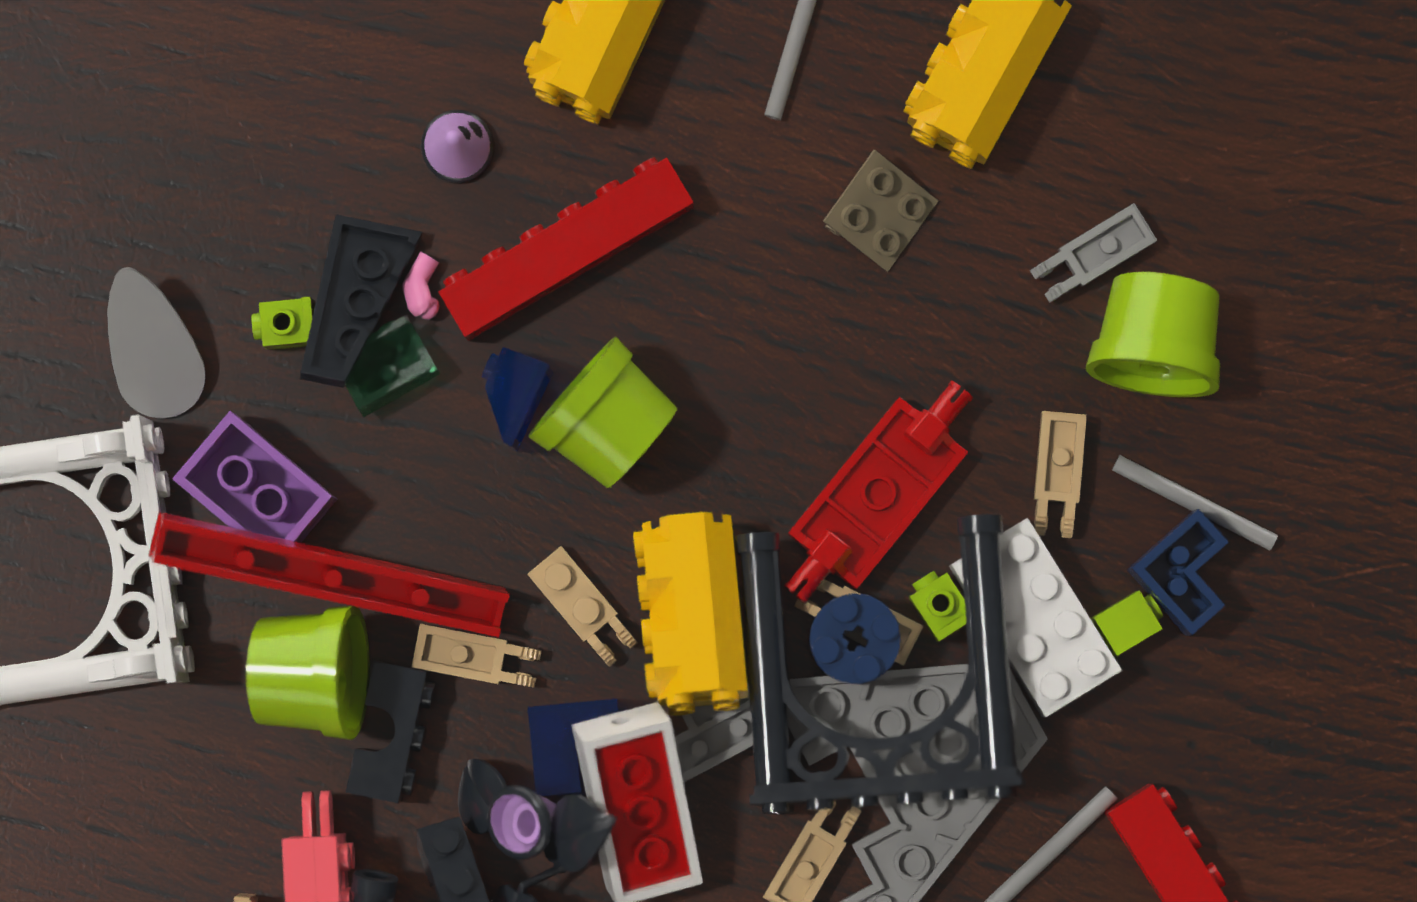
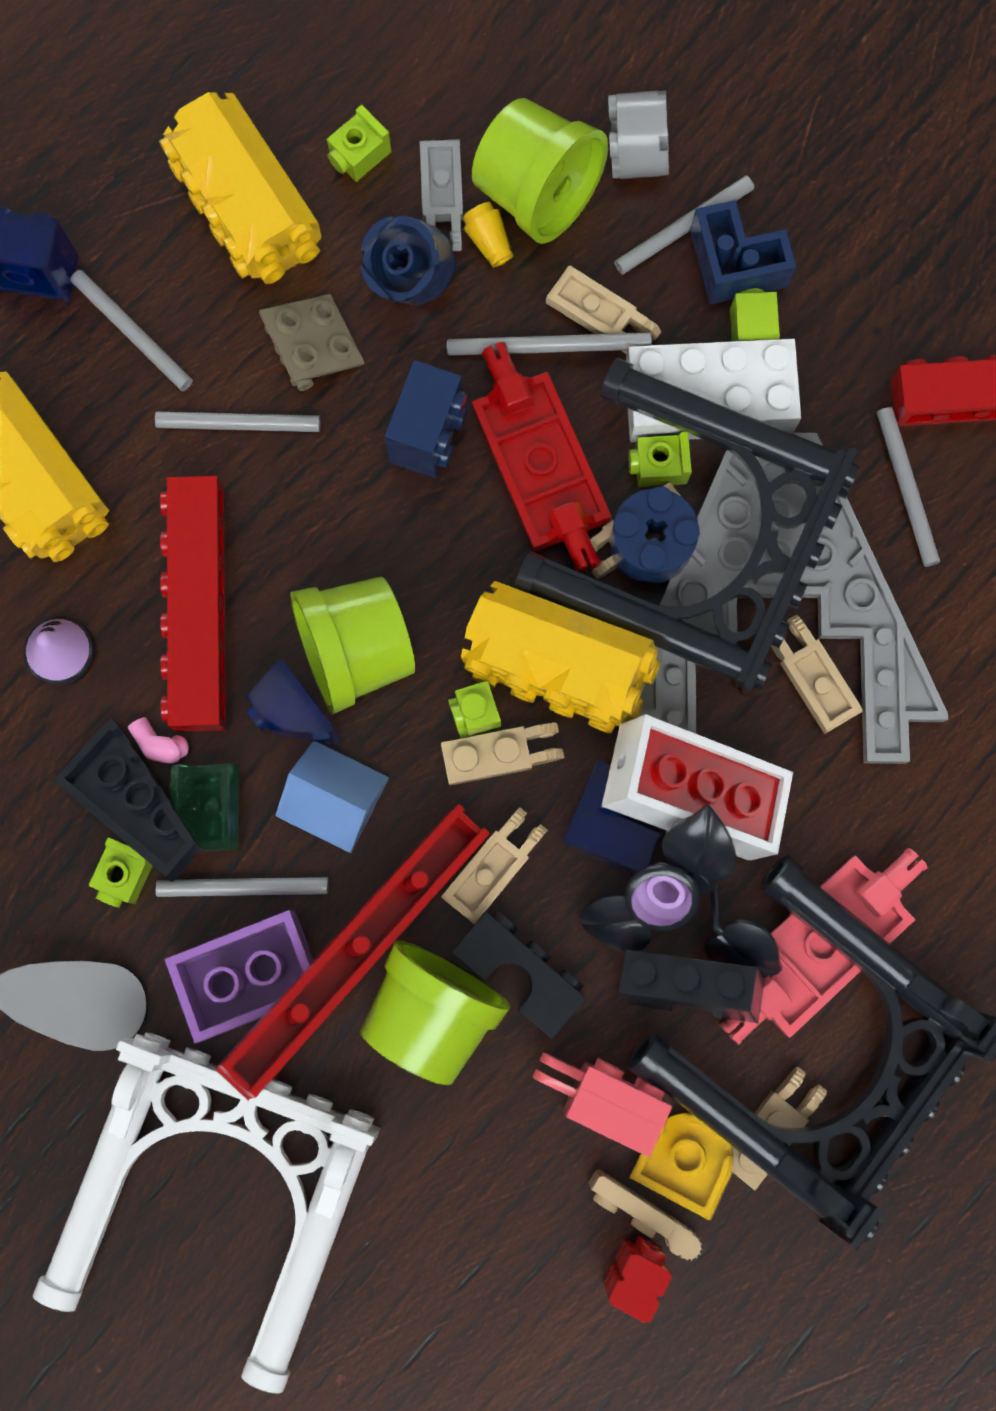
camera: 70 degrees left, 5 degrees down
(335, 441) = (242, 887): none -> light grey piece
(459, 472) = (330, 796): none -> medium blue slope
(605, 561) = (475, 710): none -> lime brick
(763, 186) = (237, 421): none -> light grey piece
(853, 366) = (425, 419): none -> dark blue brick
(998, 440) = (547, 344): none -> light grey piece
(1022, 267) = (404, 280): none -> dark blue brick
(1077, 320) = (488, 233): none -> yellow cone
(1105, 161) = (363, 156): none -> lime brick
(1252, 414) = (639, 134): none -> light grey brick

